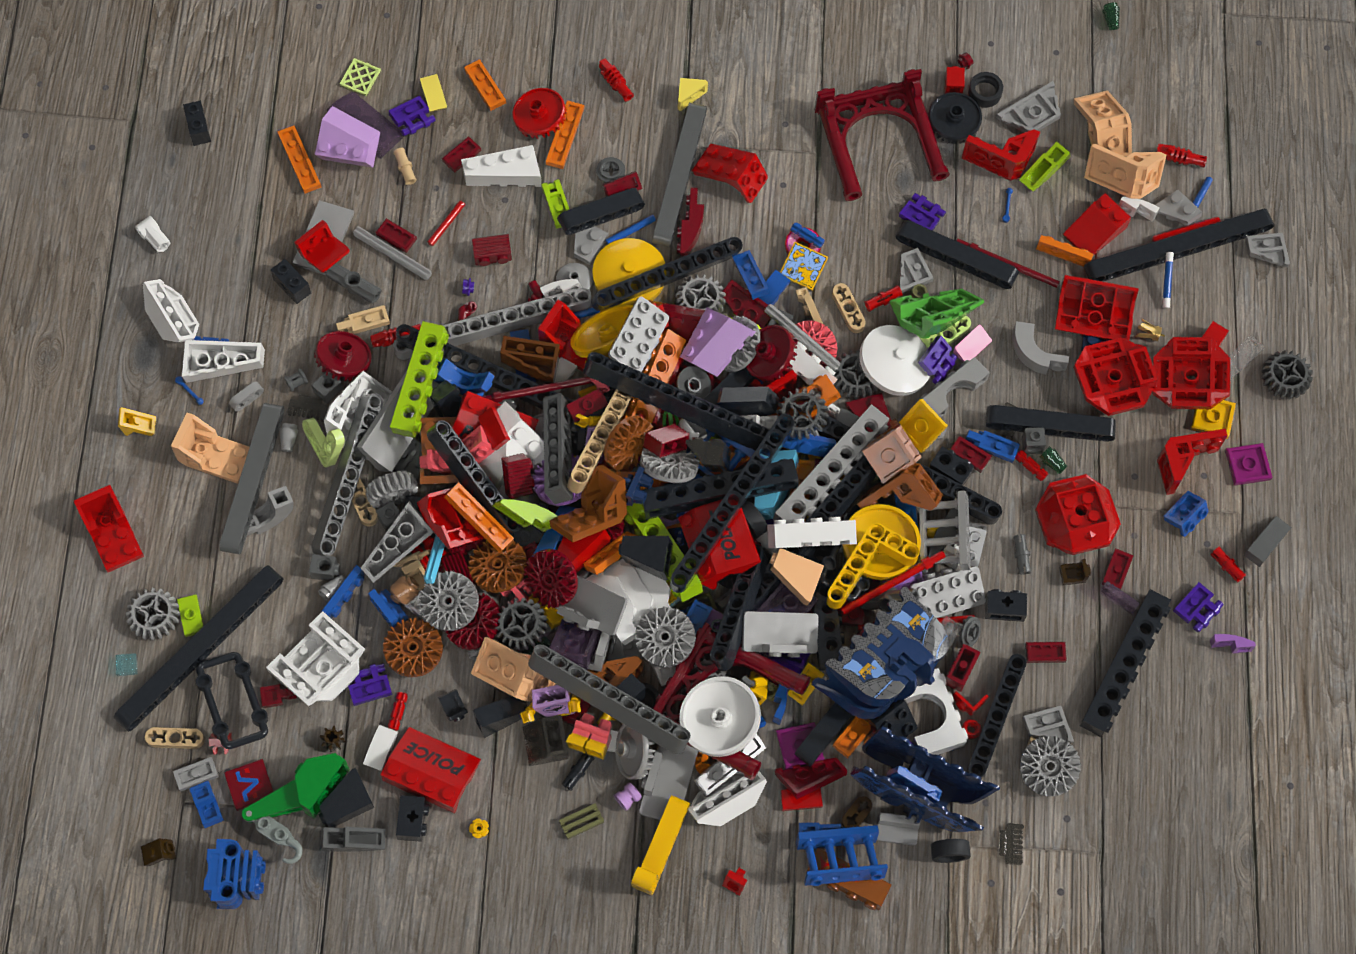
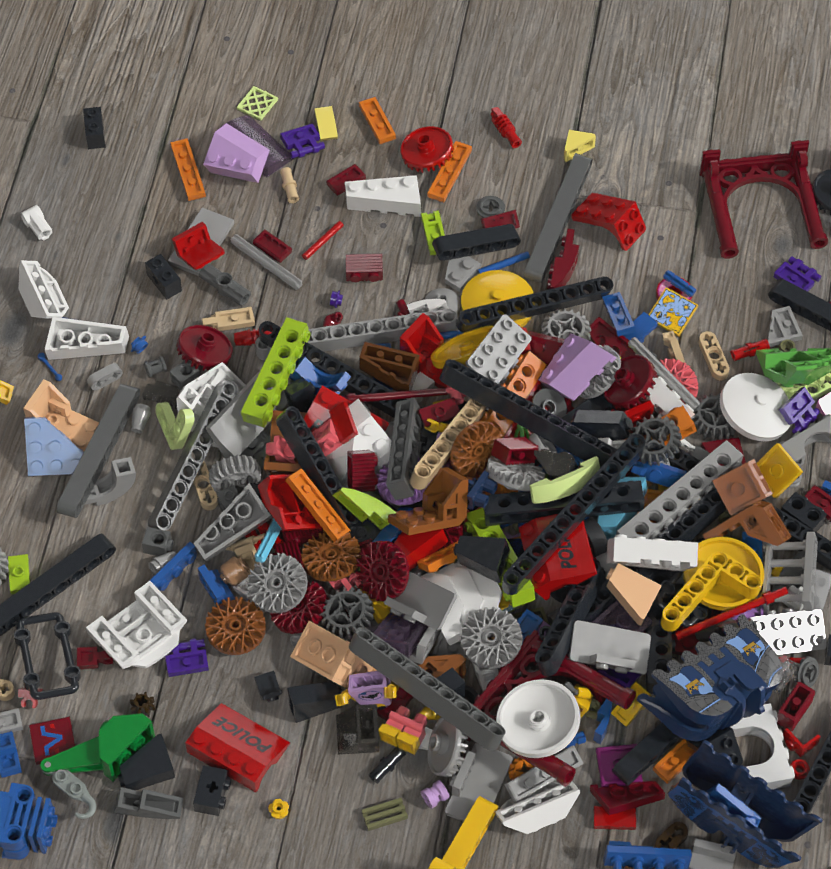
camera: 10 degrees right, 10 degrees down
(202, 482) = (49, 449): none -> medium blue plate
(276, 358) = (139, 344): none -> blue plate
(380, 747) = (189, 718): white slope -> none
(397, 711) = (211, 686): red axle -> none
(721, 473) = (565, 485): none -> yellowish green slope

